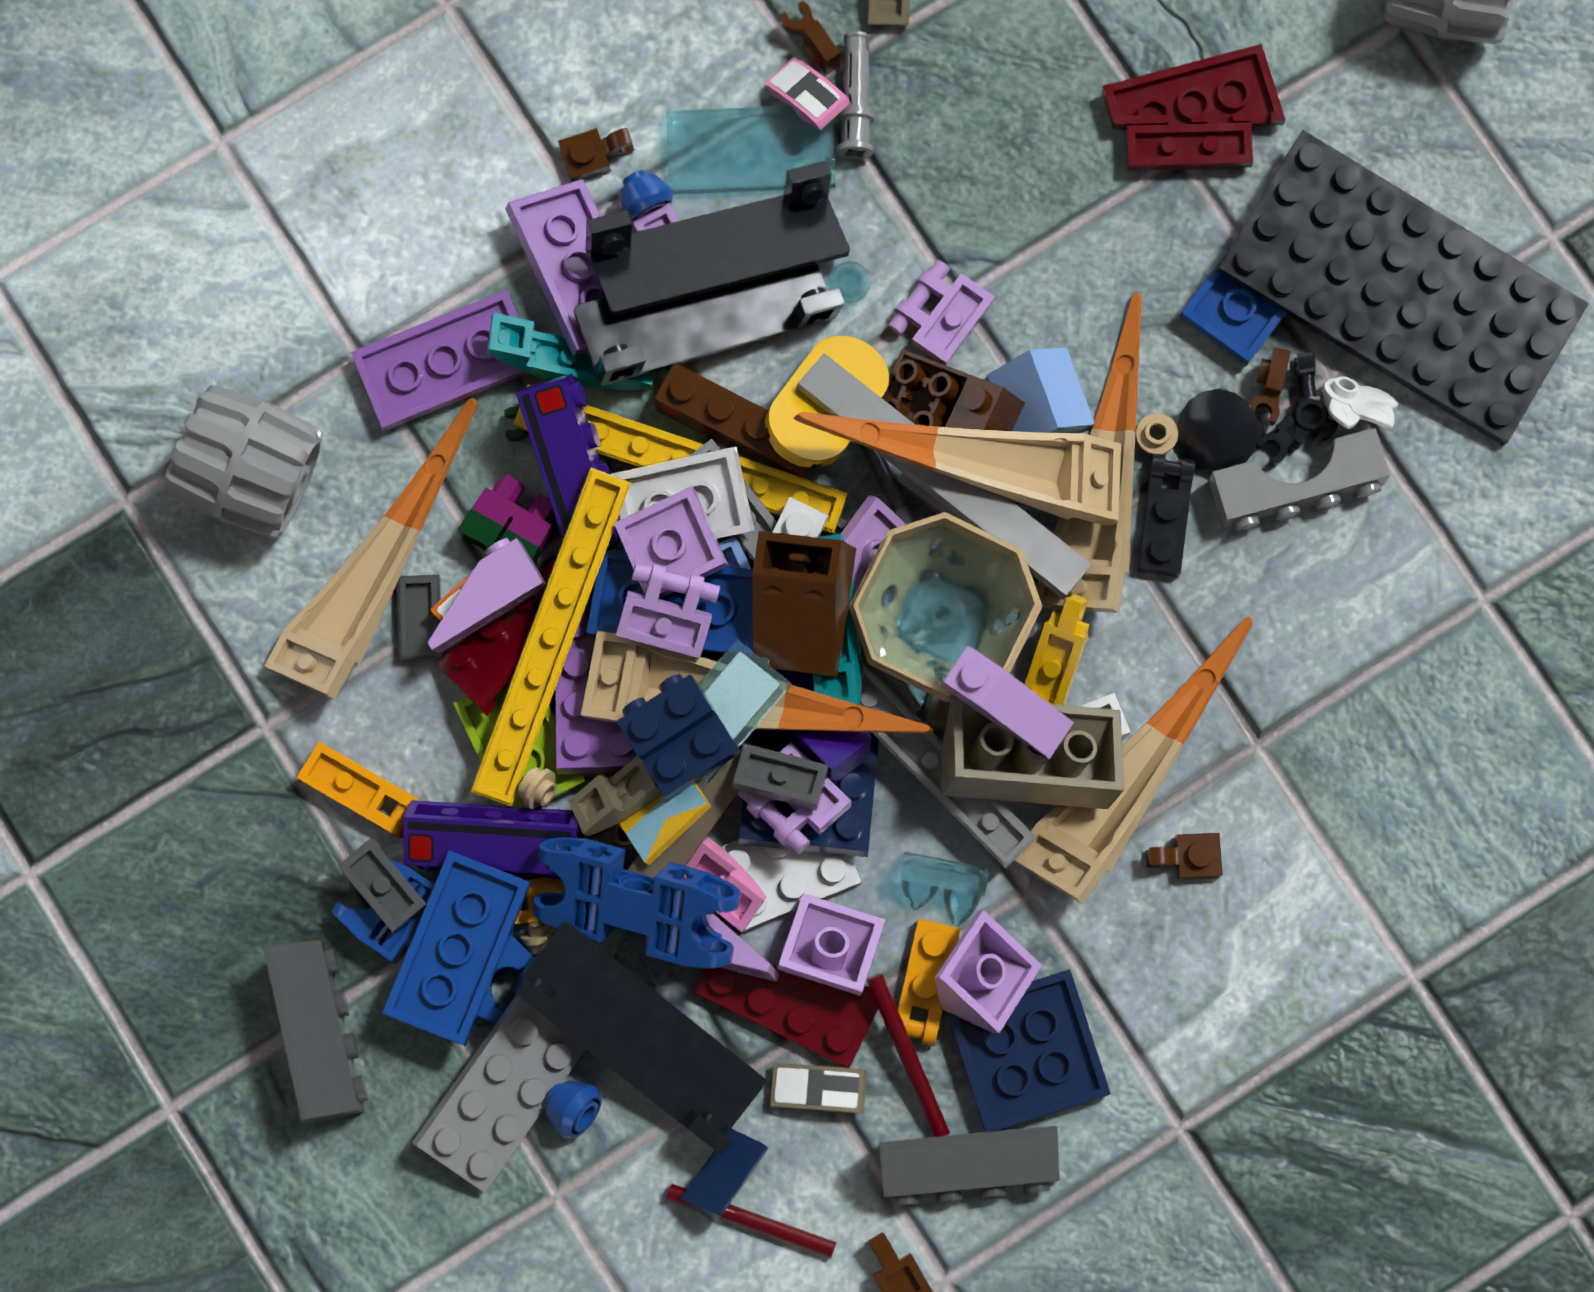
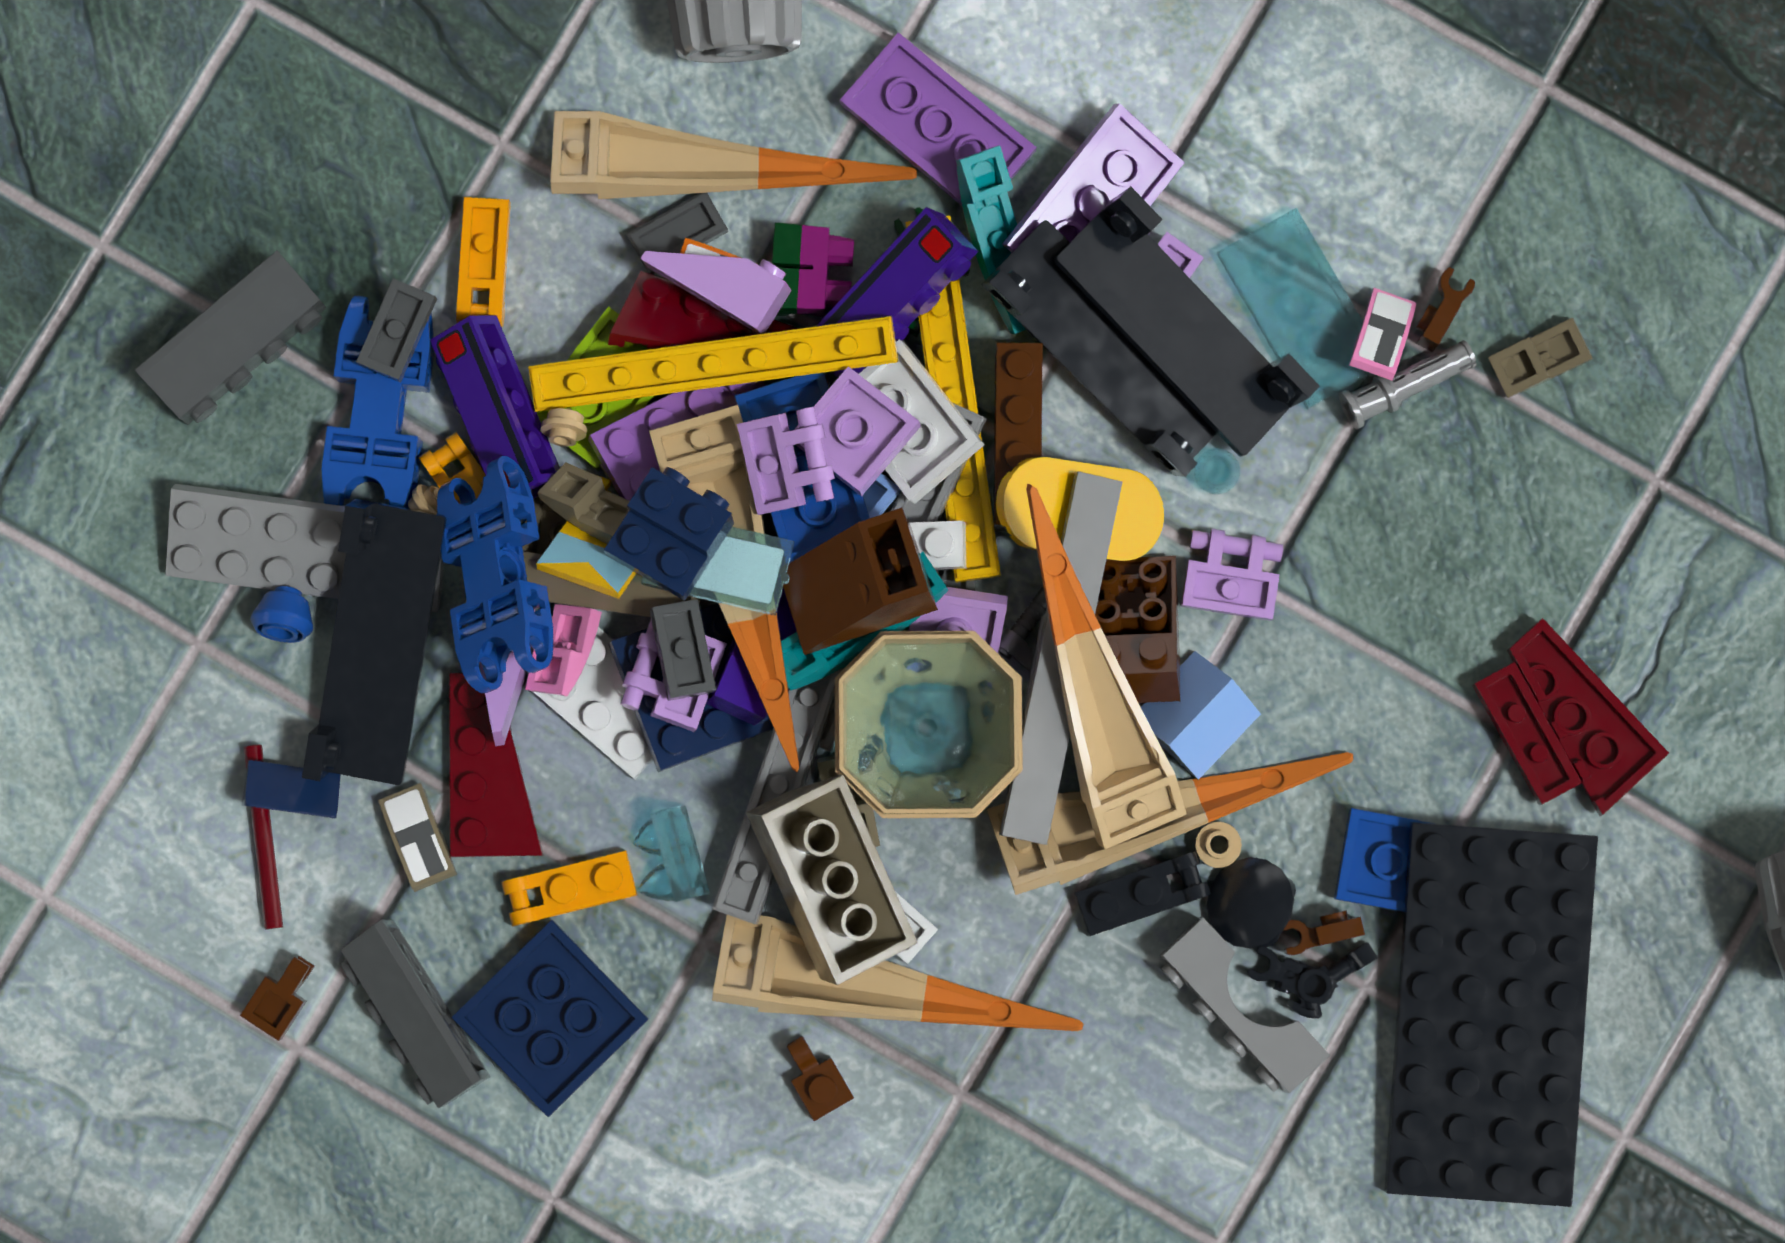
camera: 60 degrees right, 5 degrees up
(456, 948) = (372, 430): blue plate -> none
(588, 153) = (1215, 156): reddish brown plate -> none
(643, 194) = (1198, 228): blue cone -> none
(831, 944) = (554, 780): lavender slope -> none
(908, 1055) = (488, 906): dark red bar -> none
(985, 974) = (599, 941): lavender slope -> none
(1006, 702) = (858, 829): lavender slope -> none
(1059, 652) = (943, 857): yellow hinge -> none
(1350, 403) = (1349, 1025): white plate -> none

